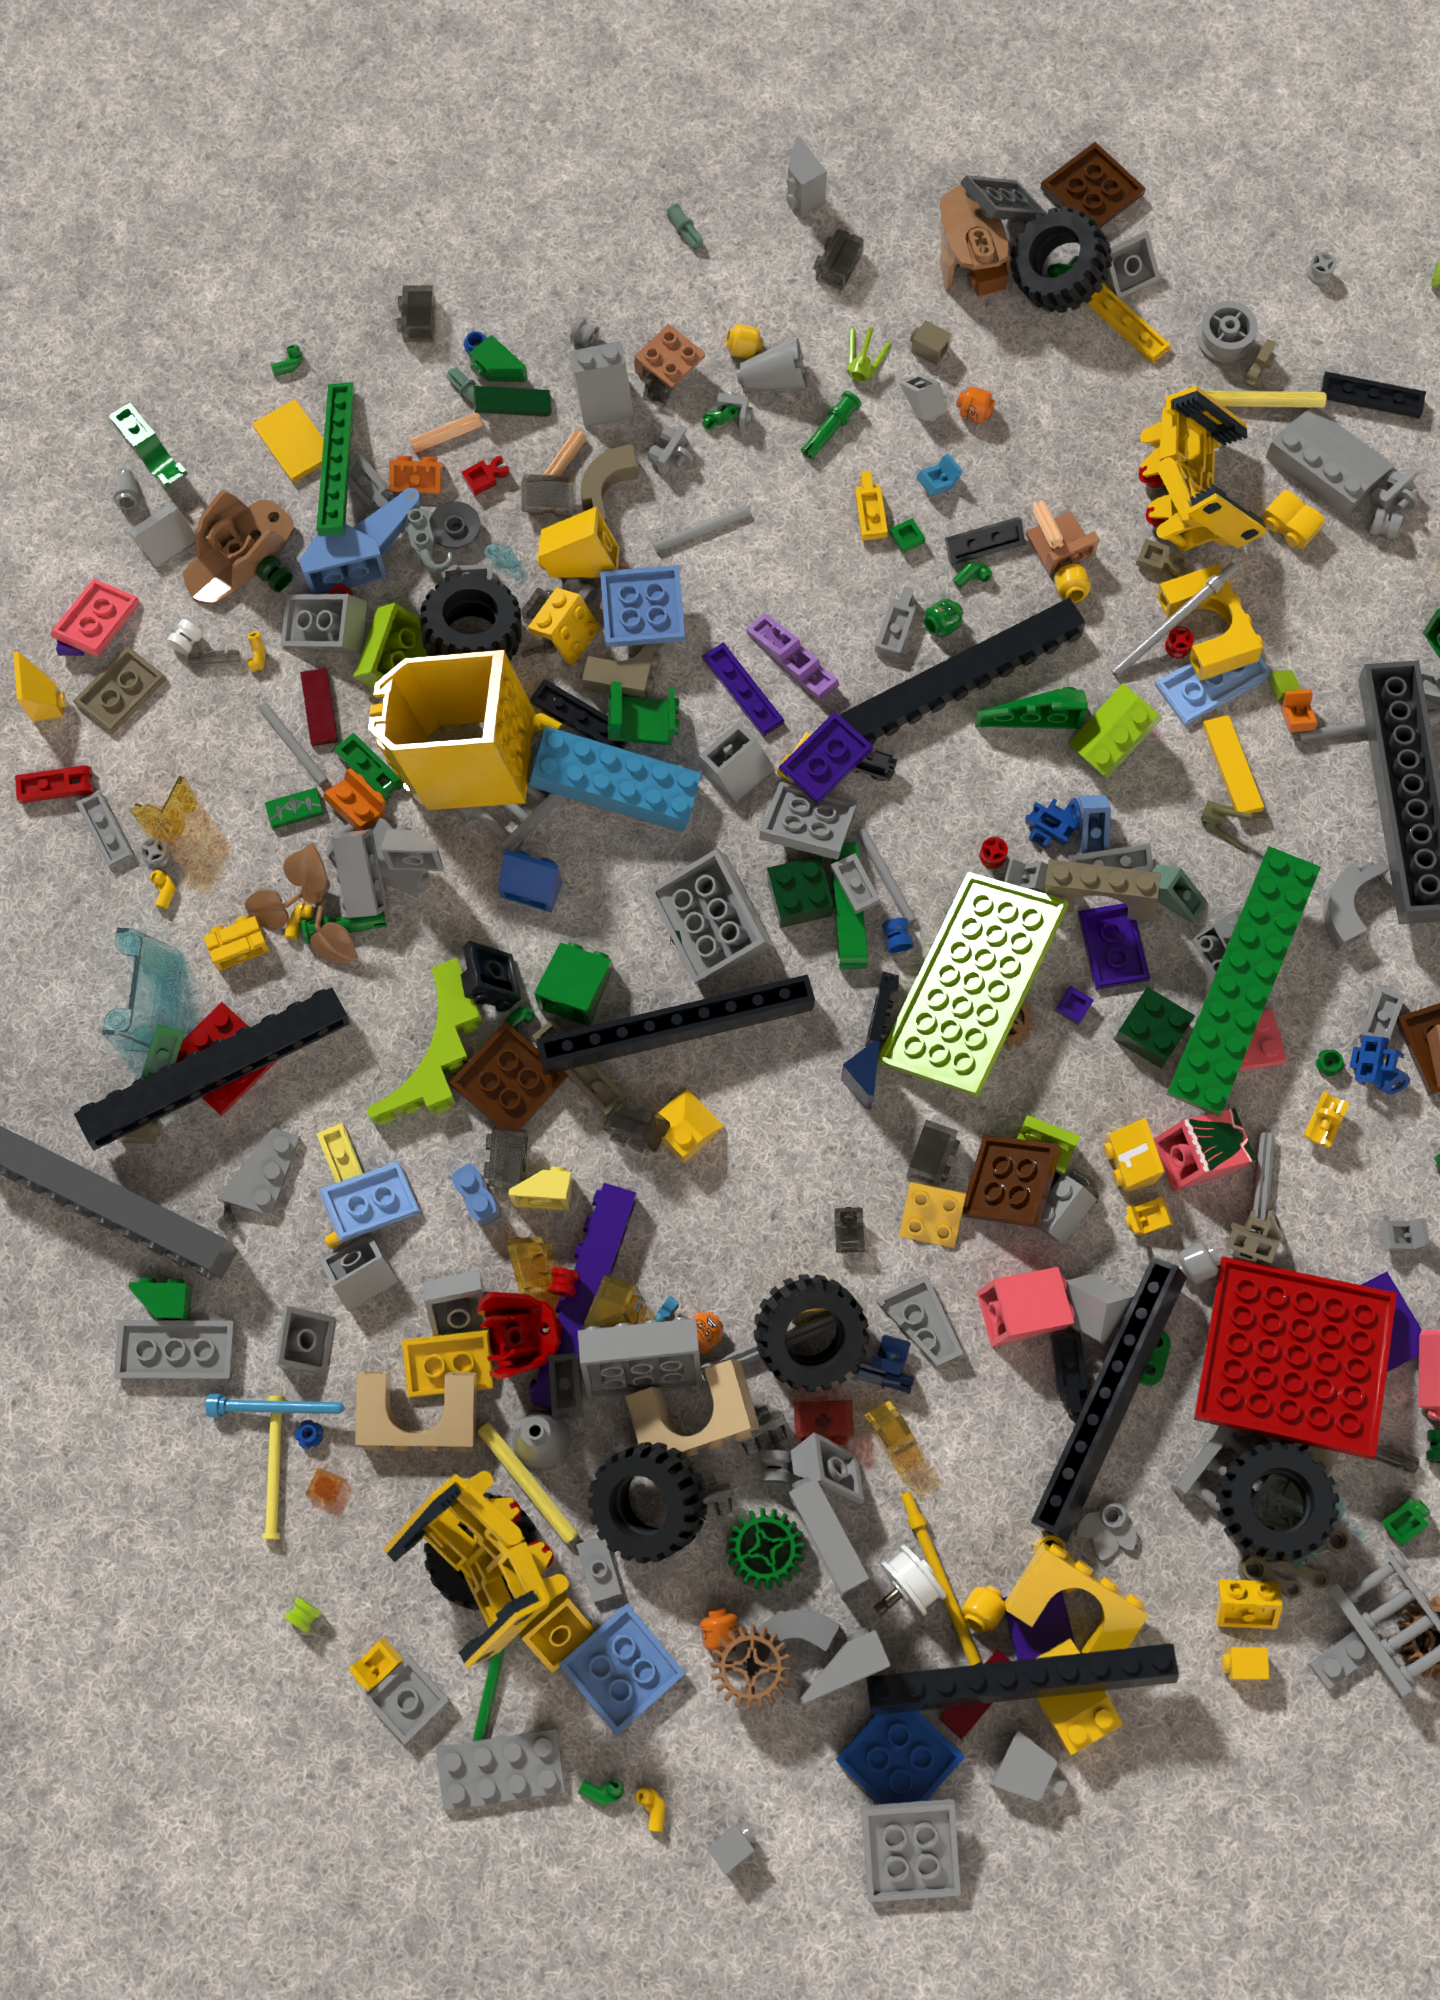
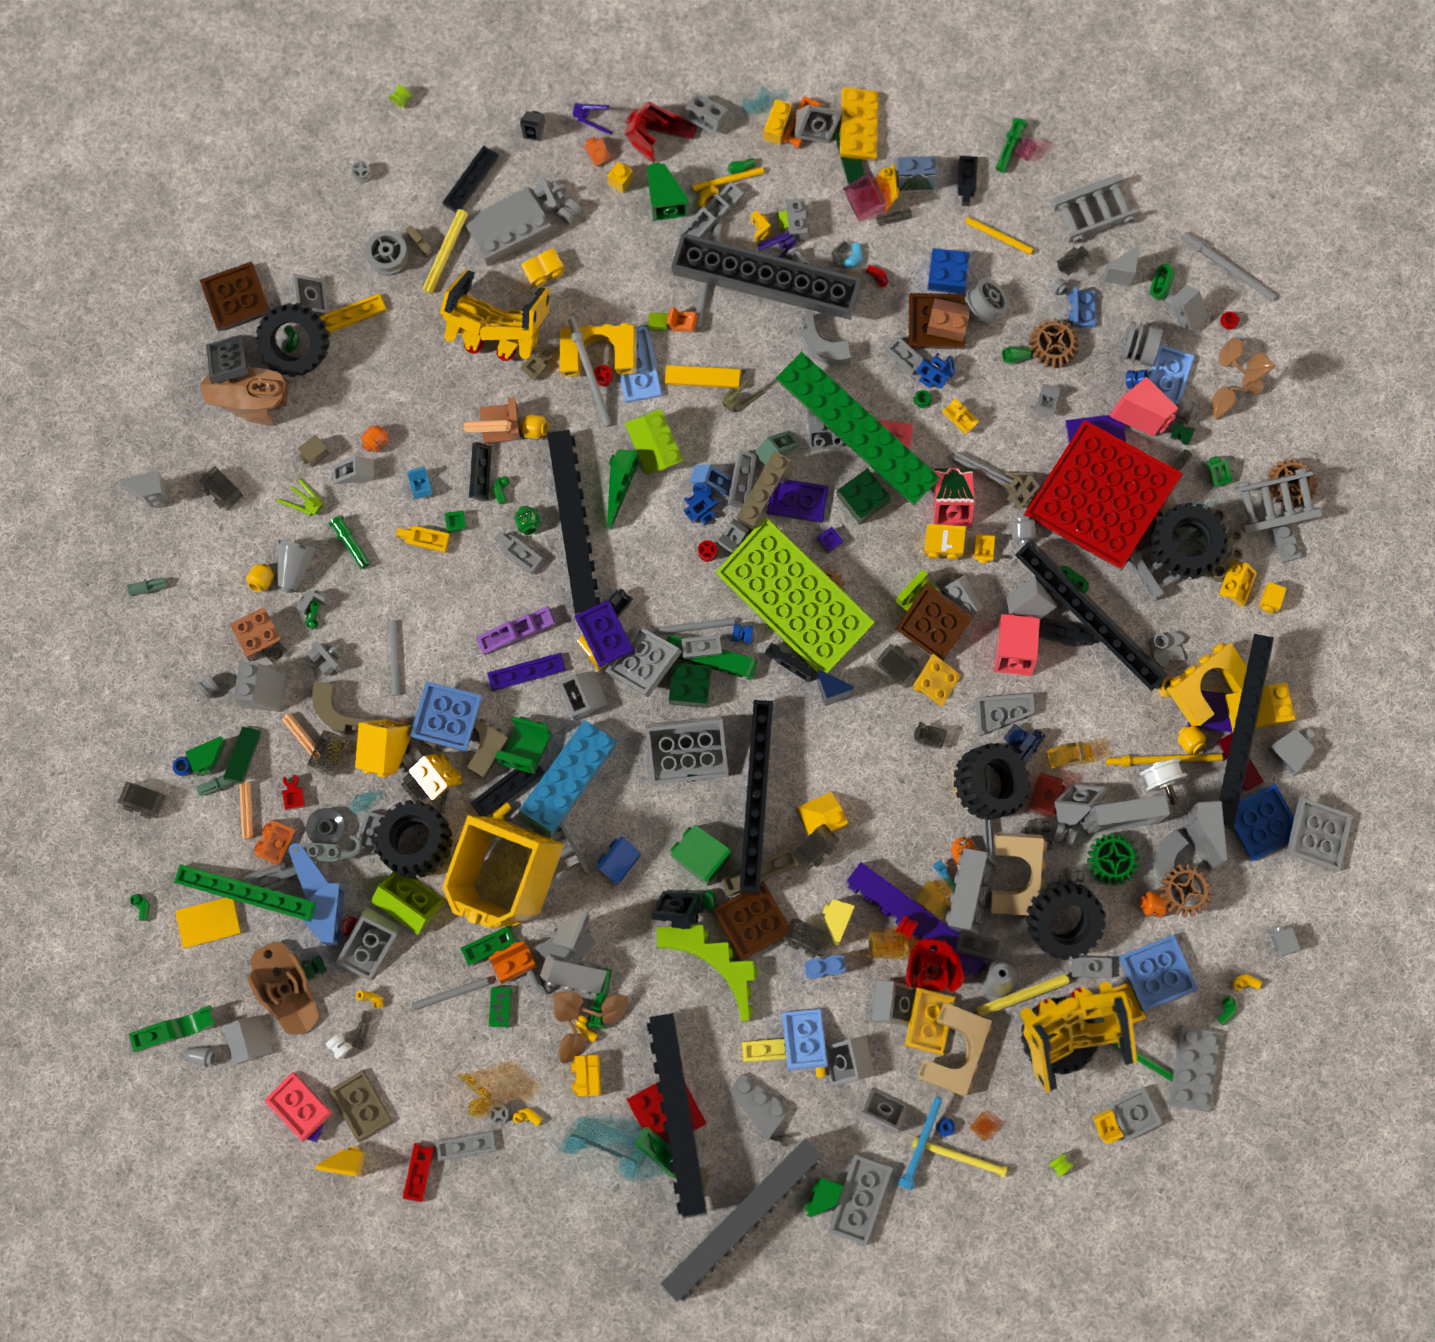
camera: 70 degrees left, 5 degrees up
(319, 707) = (428, 967): dark red tile -> none

